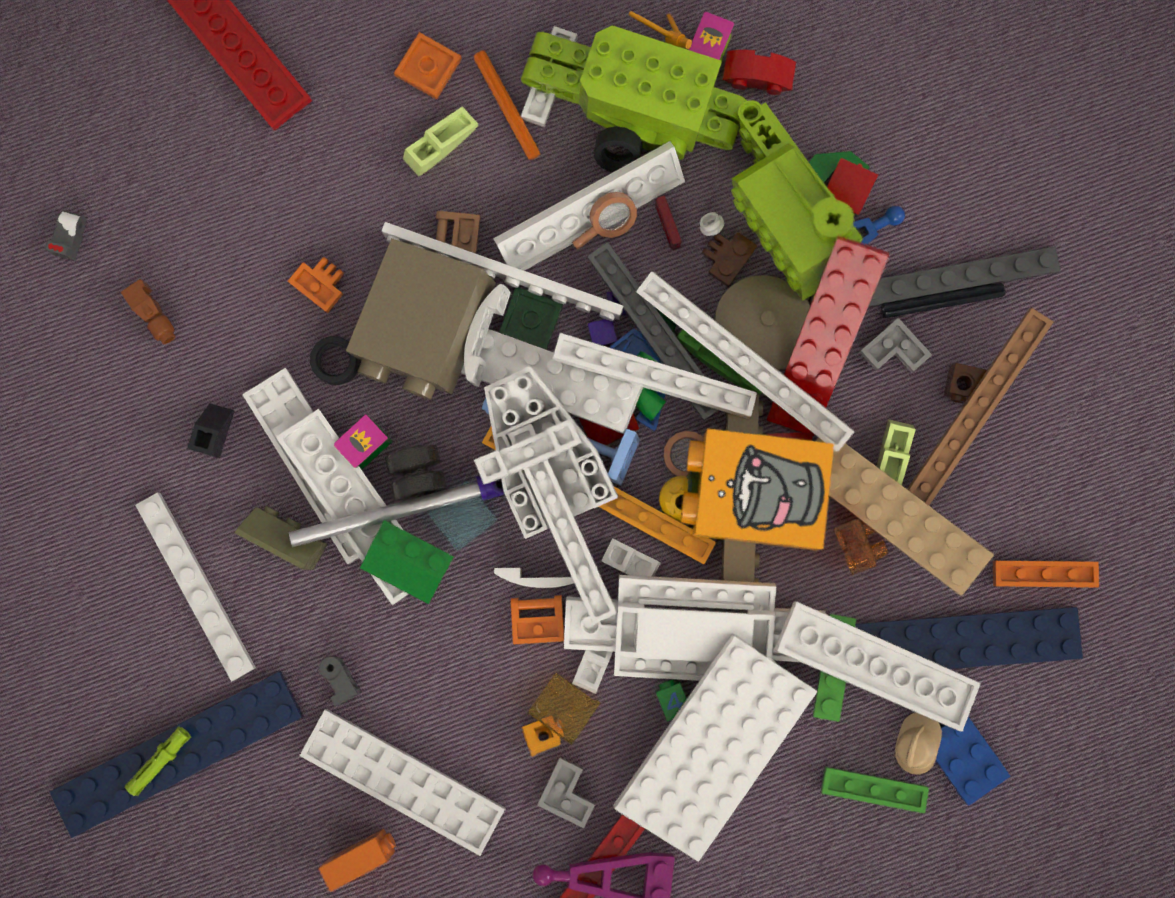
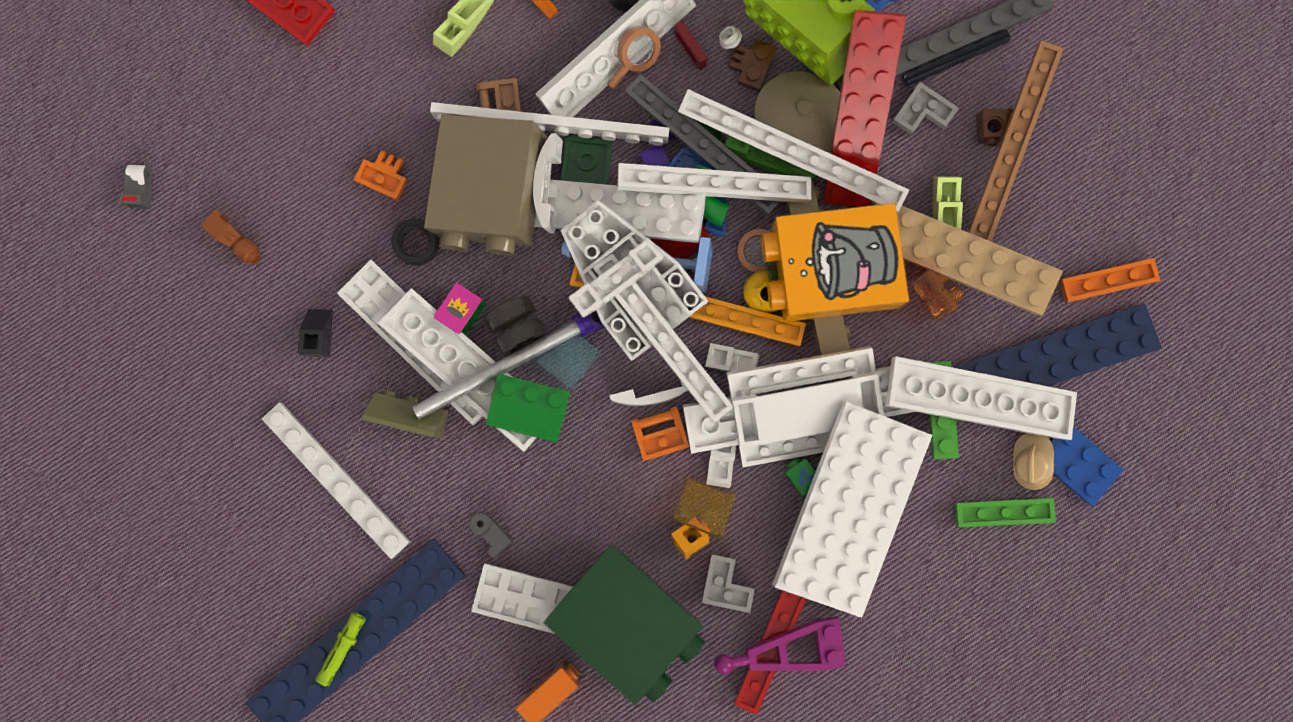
camera: 20 degrees left, 0 degrees up
(452, 811) = (626, 626): none -> dark green brick

